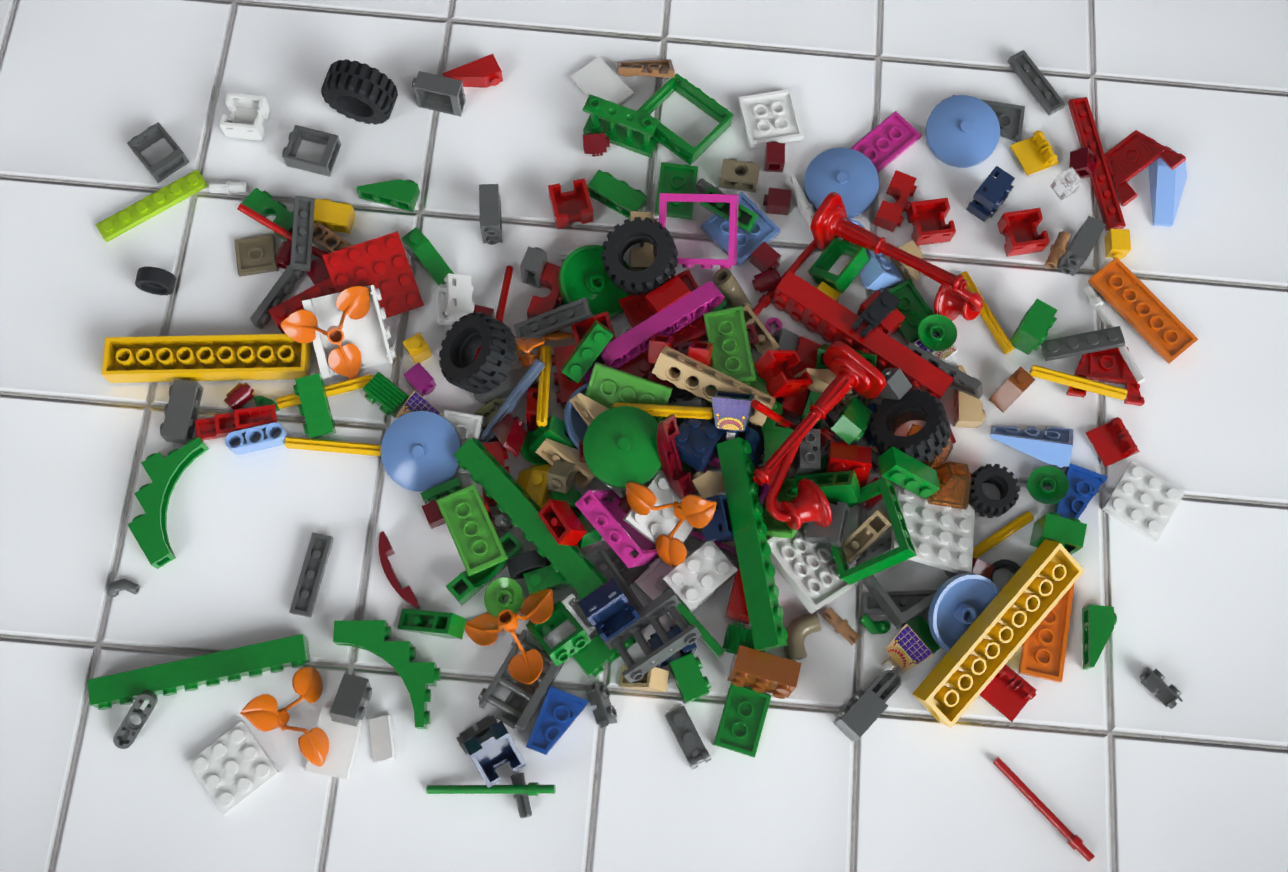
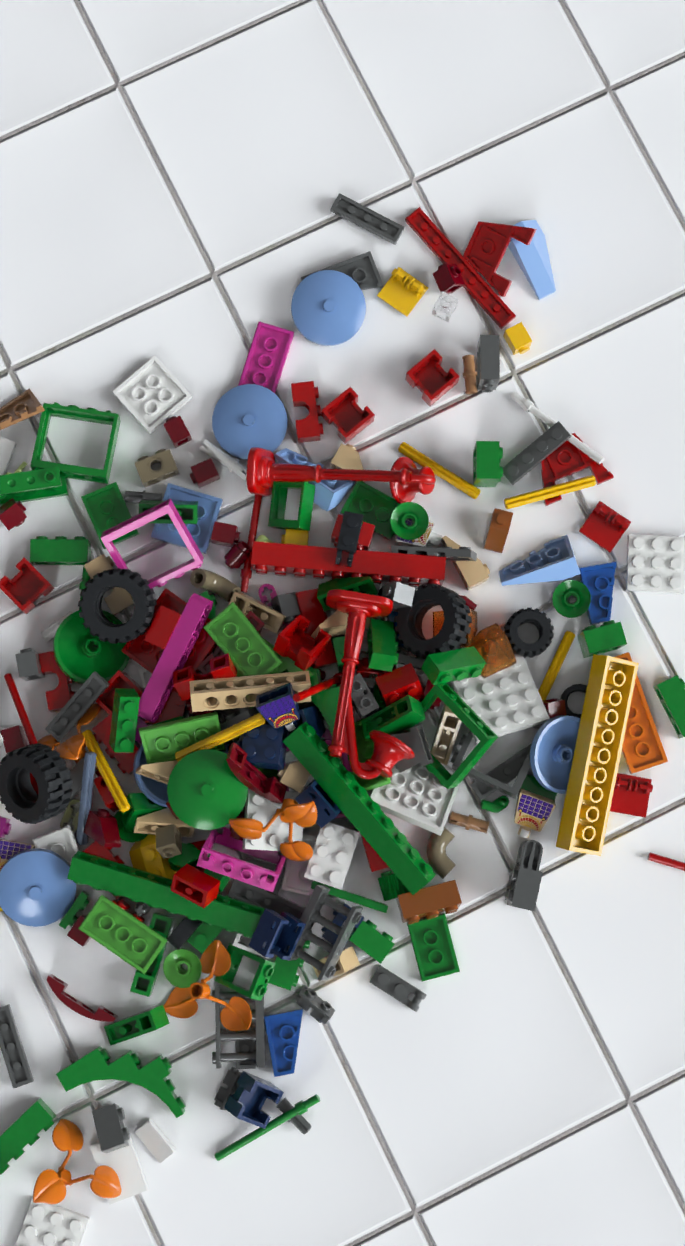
camera: 30 degrees left, 10 degrees up
(995, 195) = (385, 354): dark blue piece -> none
(1142, 310) = (569, 389): orange plate -> none

